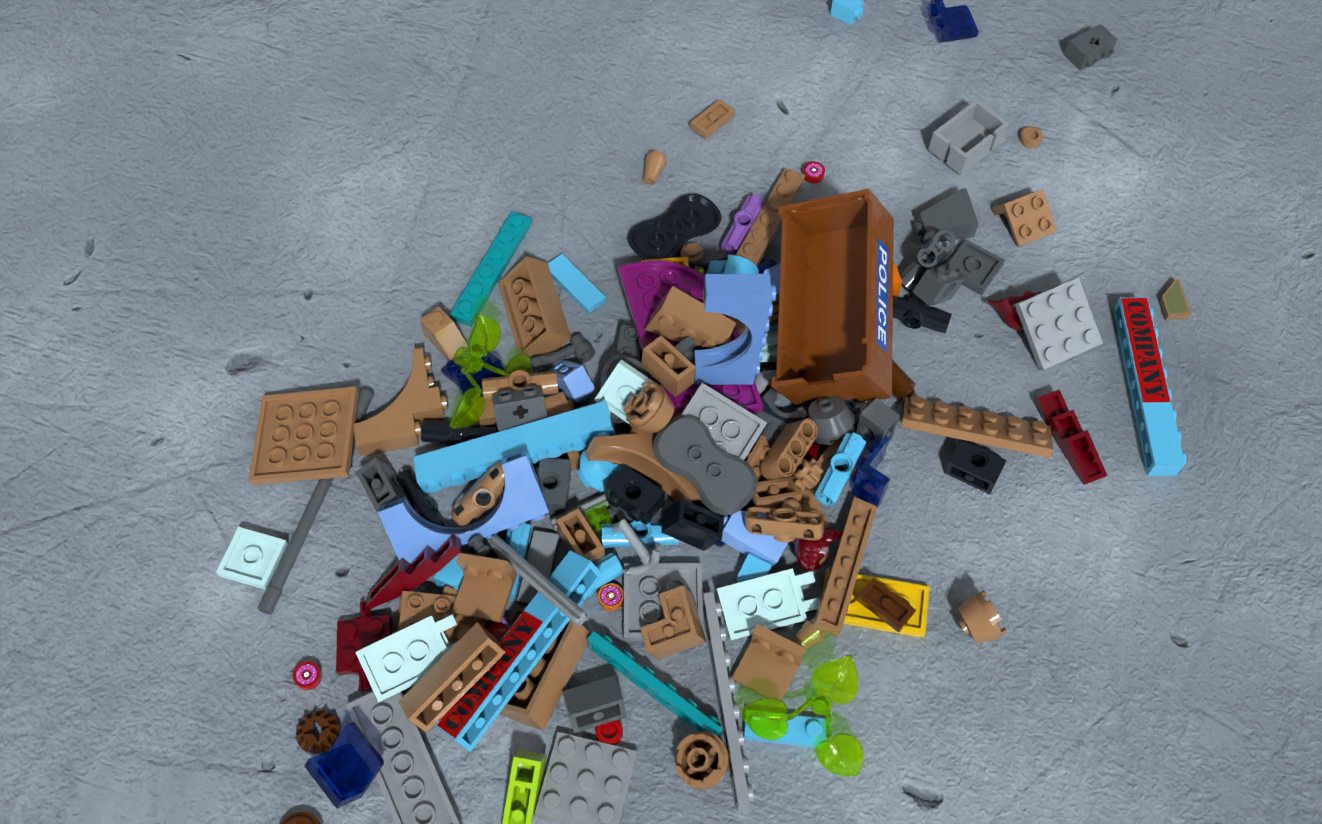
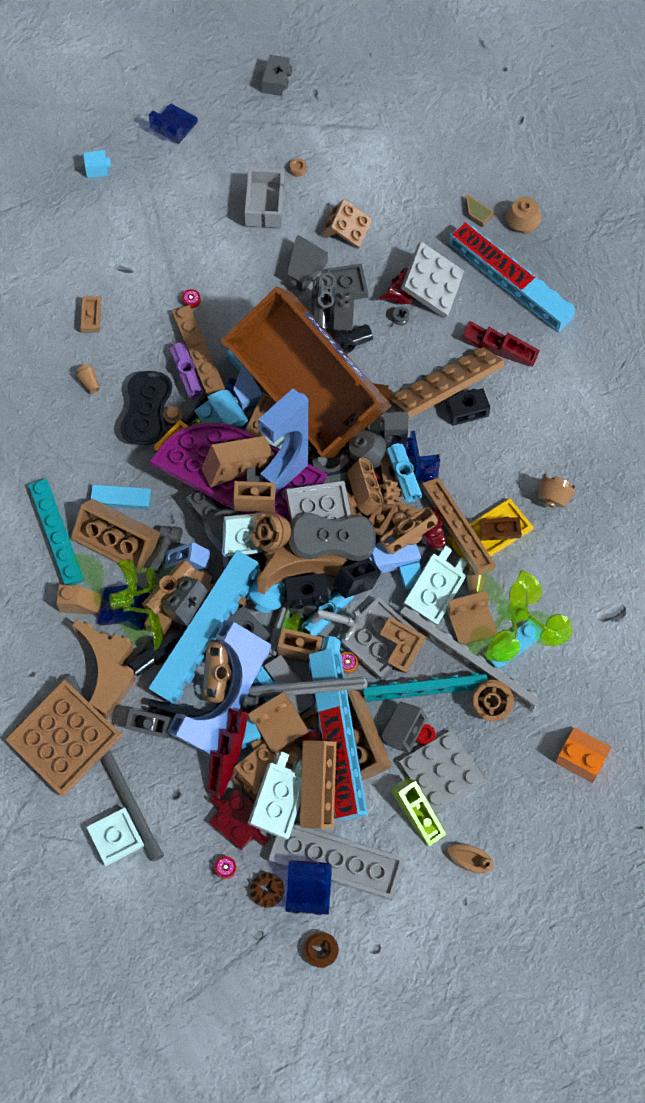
camera: 45 degrees left, 5 degrees up
(995, 327) = (401, 310): none -> dark grey bush
(1220, 339) = (524, 215): none -> medium nougat cone

